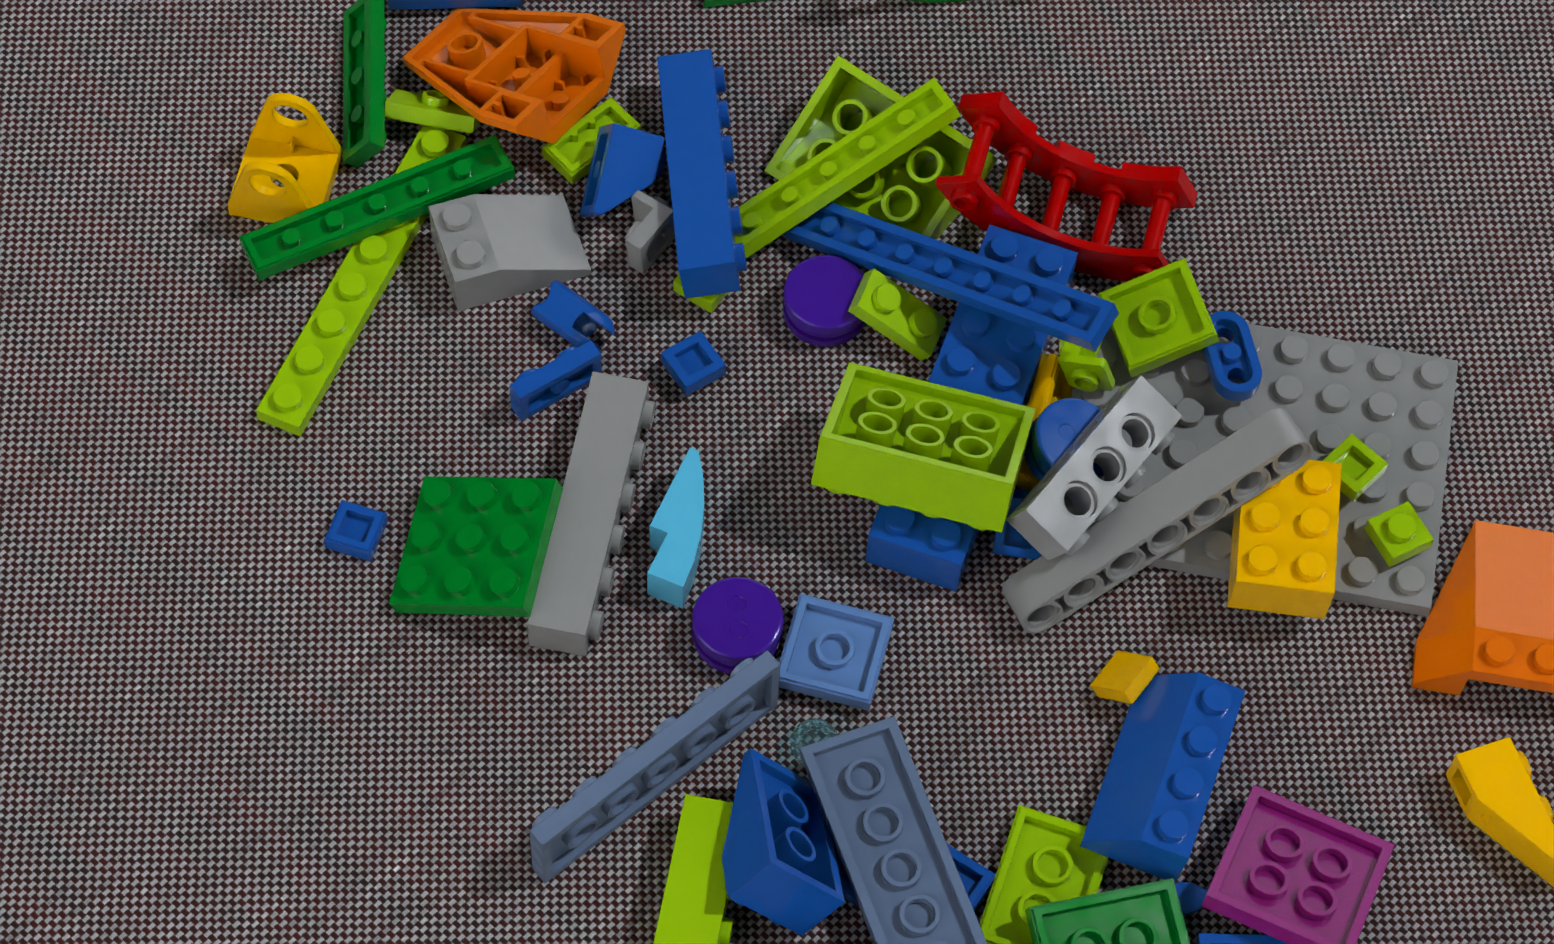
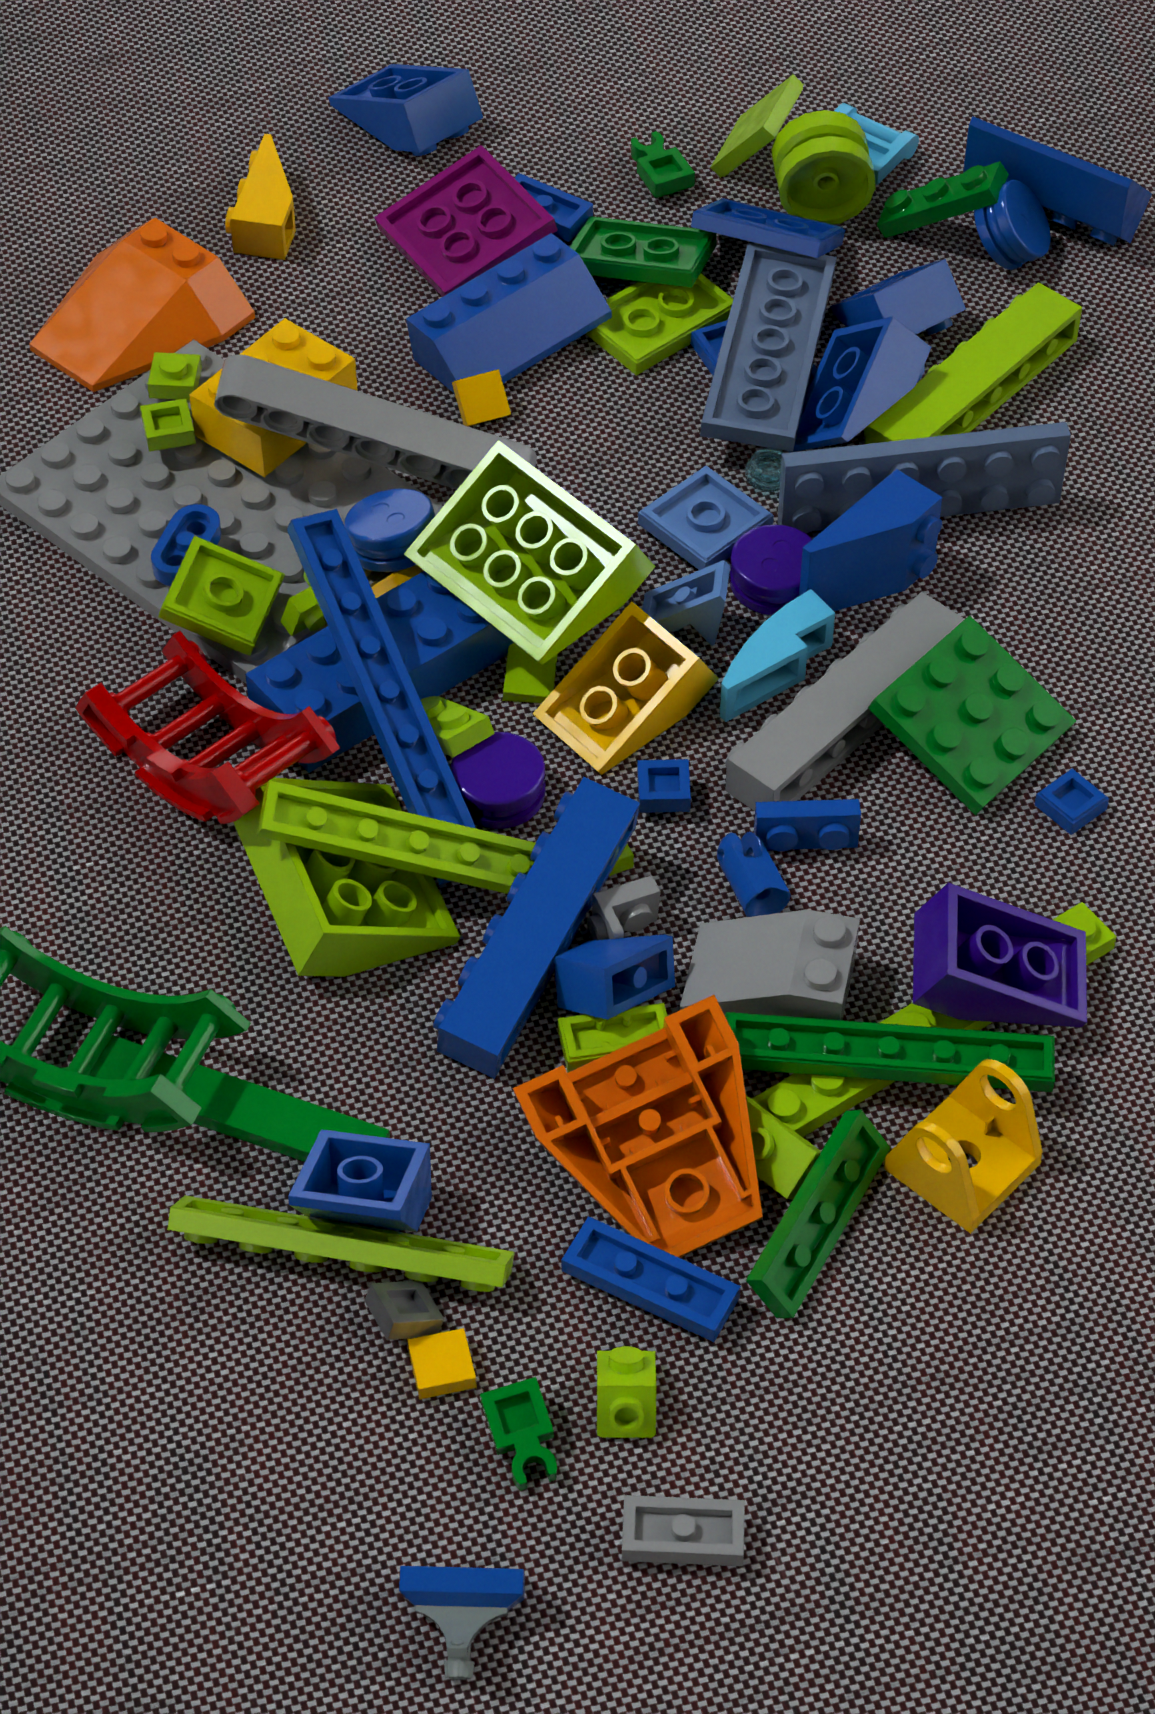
camera: 145 degrees left, 10 degrees down
(327, 301) = (997, 962): none -> dark purple slope
(650, 663) = (875, 545): none -> blue slope
(774, 434) = (625, 691): none -> yellow slope
(783, 533) = (691, 600): none -> medium blue slope
(1043, 515) = (395, 467): light grey brick -> none

